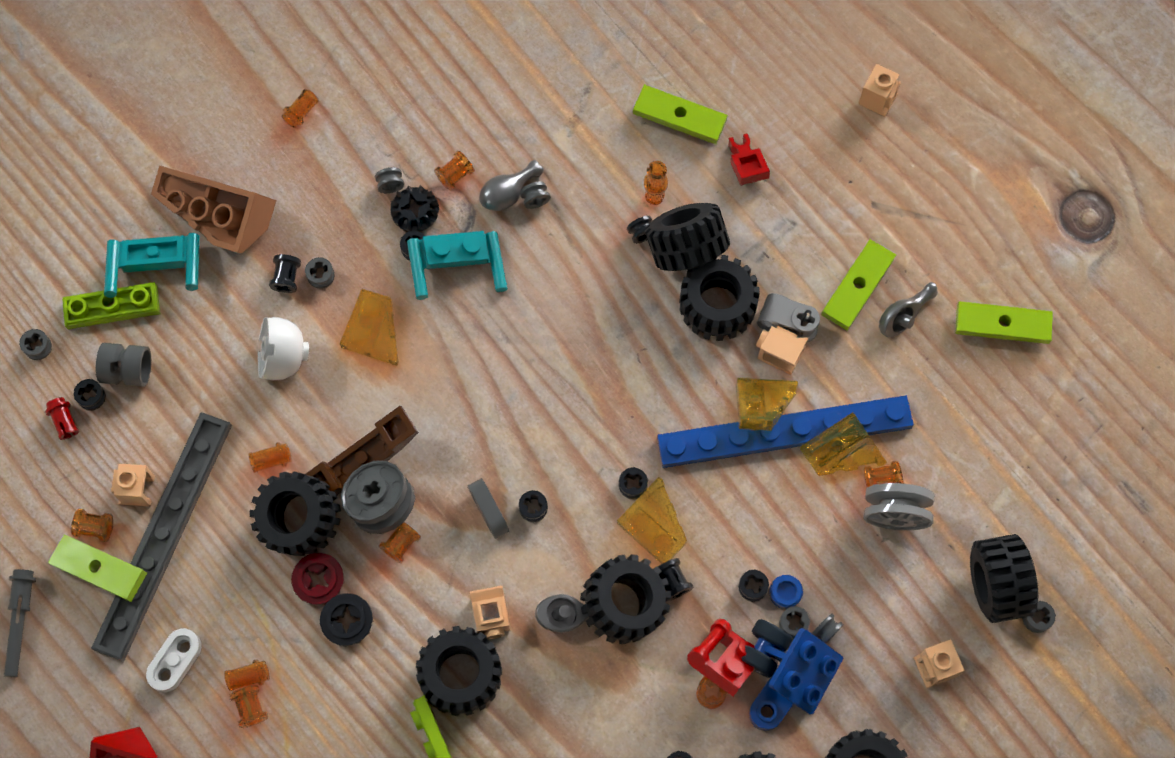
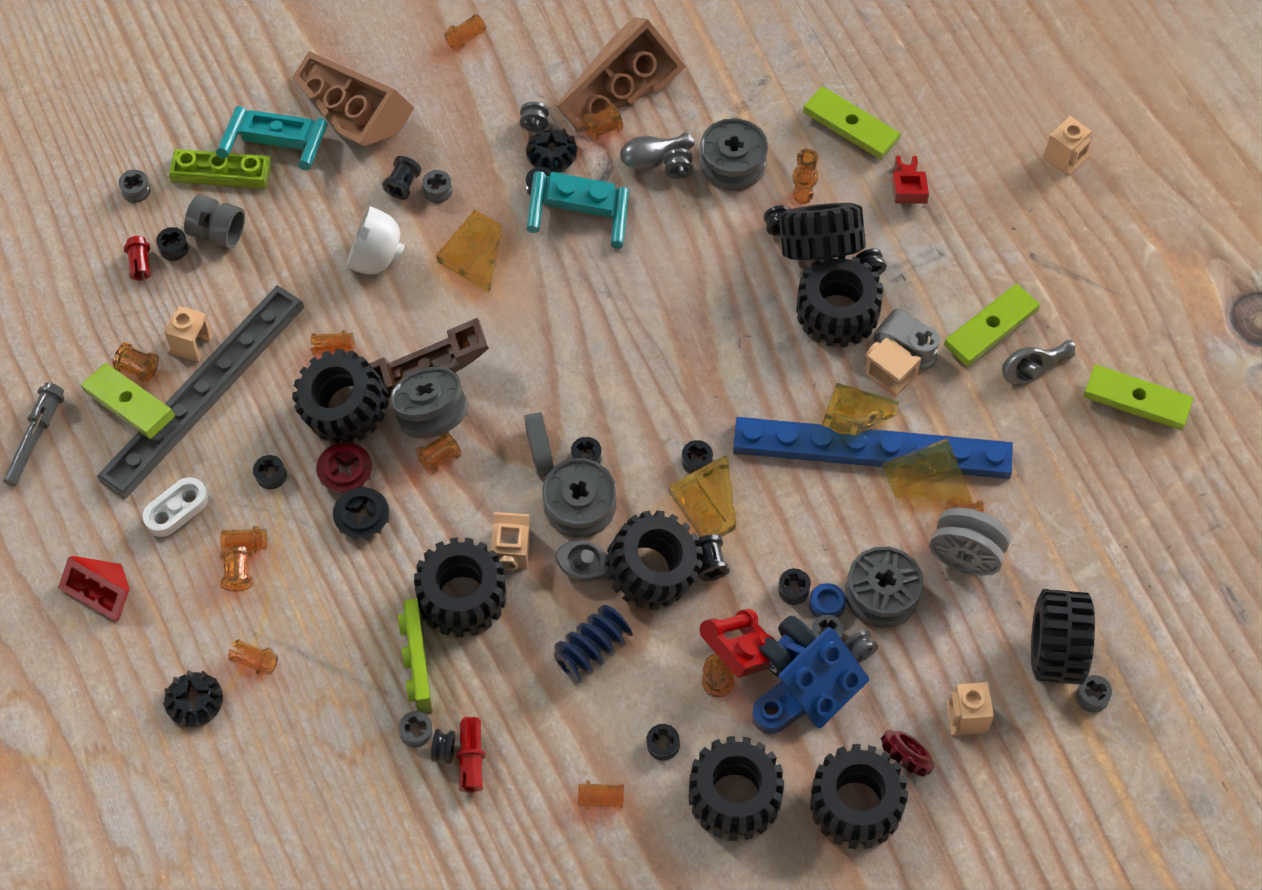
camera: 15 degrees right, 10 degrees down
(259, 606) = (277, 479): none -> black bush
(458, 114) = (625, 70): none -> nougat wedge
(528, 537) = (573, 480): none -> dark grey wheel
(579, 157) = (733, 153): none -> dark grey wheel
(591, 692) = (590, 641): none -> dark blue piece
(737, 250) = (873, 258): none -> black bush
(851, 564) = (885, 605): none -> dark grey wheel
(897, 721) = (907, 752): none -> dark red gear

